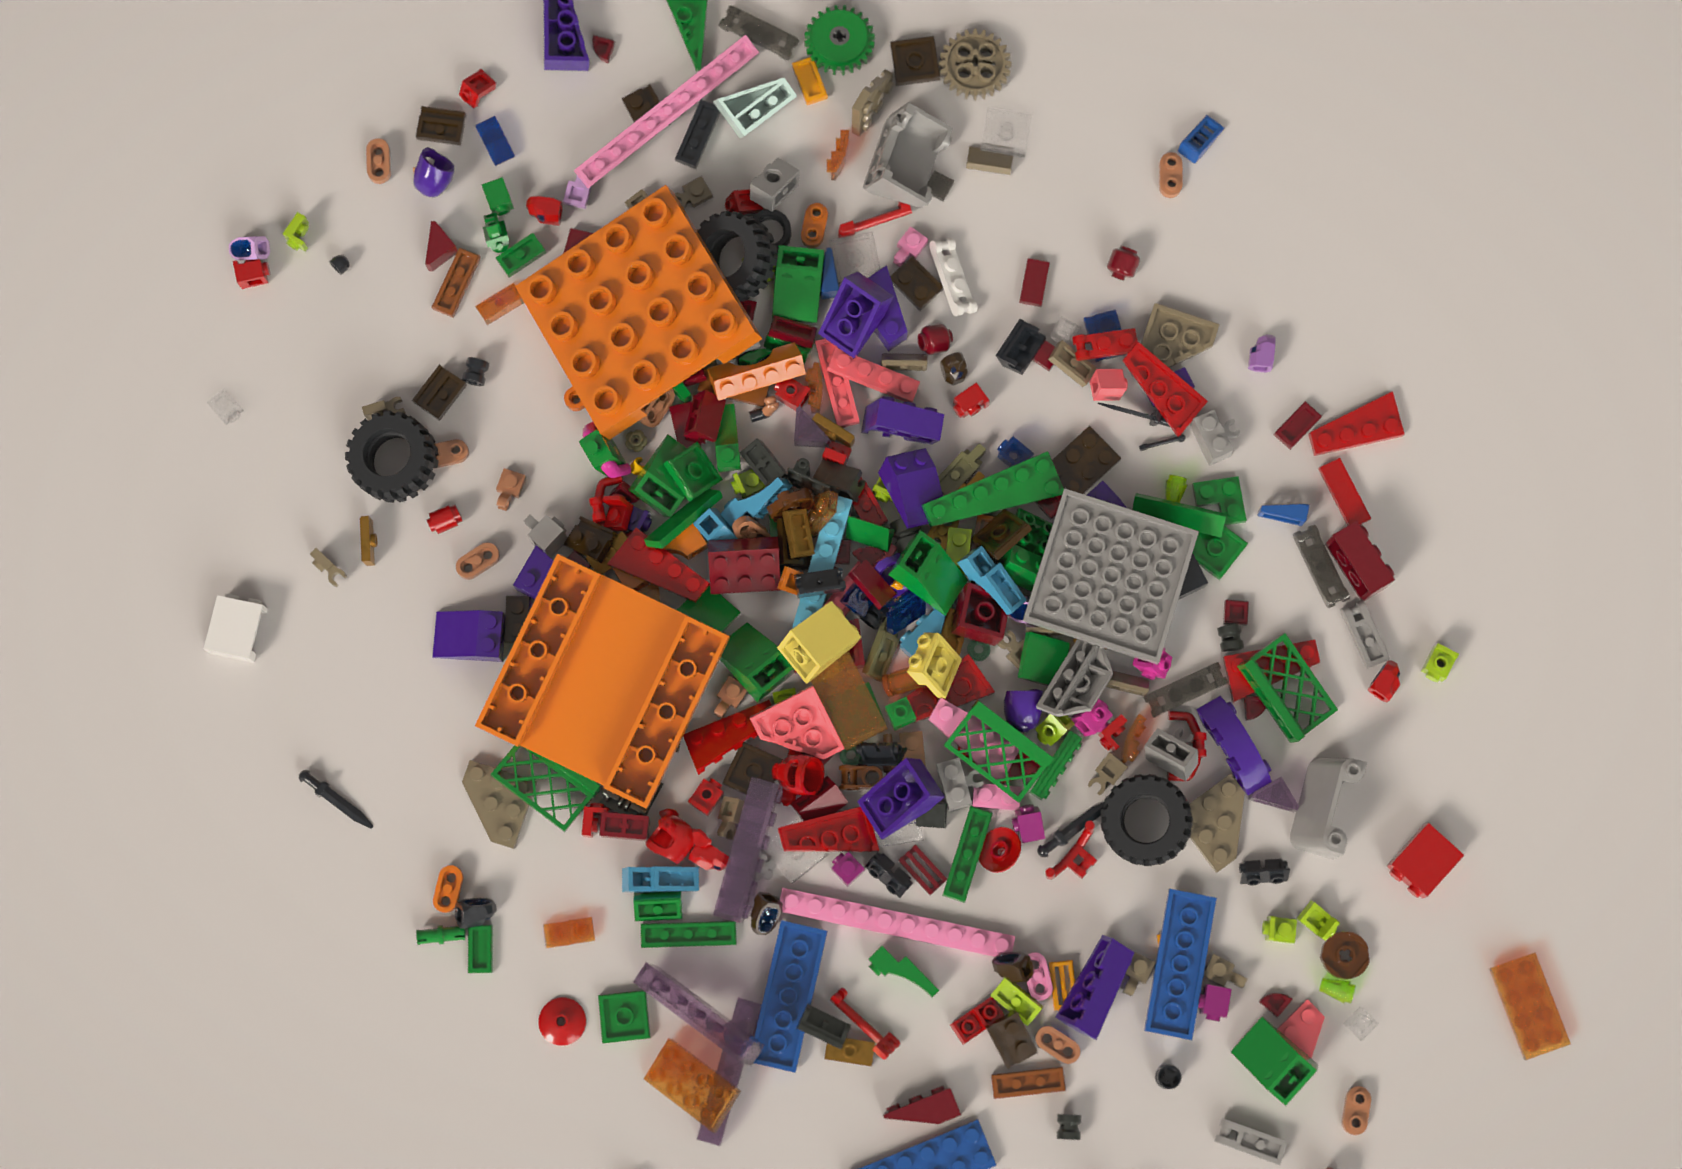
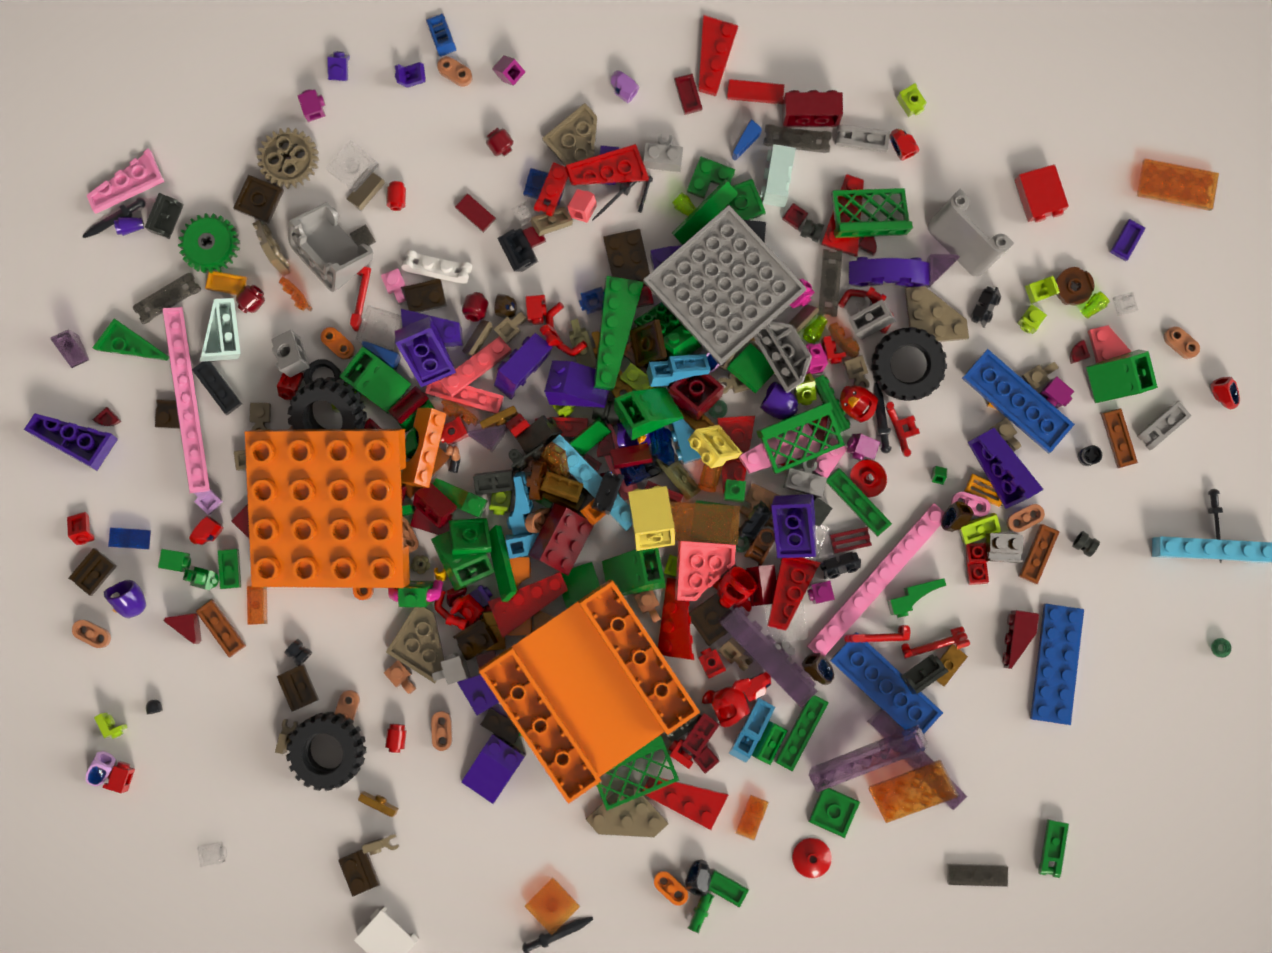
camera: 60 degrees left, 5 degrees up
(287, 562) = (358, 872): none -> dark brown plate
(362, 777) = (552, 906): none -> clear orange plate
(549, 857) = (690, 801): none -> red wing
(554, 485) = (419, 643): none -> dark tan plate
(602, 850) = (706, 759): none -> dark red tile
(807, 113) = (250, 299): none -> dark red head
(854, 984) = (902, 635): none -> red hinge
(933, 385) = (509, 328): none -> dark tan plate
(950, 435) = (552, 336): none -> red piece
(1002, 193) = (396, 195): none -> red brick
(1044, 55) = (312, 105): none -> magenta brick
(1048, 924) = (939, 475): none -> green piece
(1073, 790) = (855, 400): none -> red piece
(1101, 57) = (338, 66): none -> dark purple bracket
(1123, 703) = (814, 331): none -> clear neon green cone
(1137, 133) = (410, 75): none -> dark purple bracket
(1204, 227) = (508, 70): none -> magenta brick
(1208, 1100) = (1119, 438): none -> dark orange tile
(1267, 568) = (778, 175): none -> light aqua wedge
(1433, 986) = (1127, 240): none -> dark purple tile

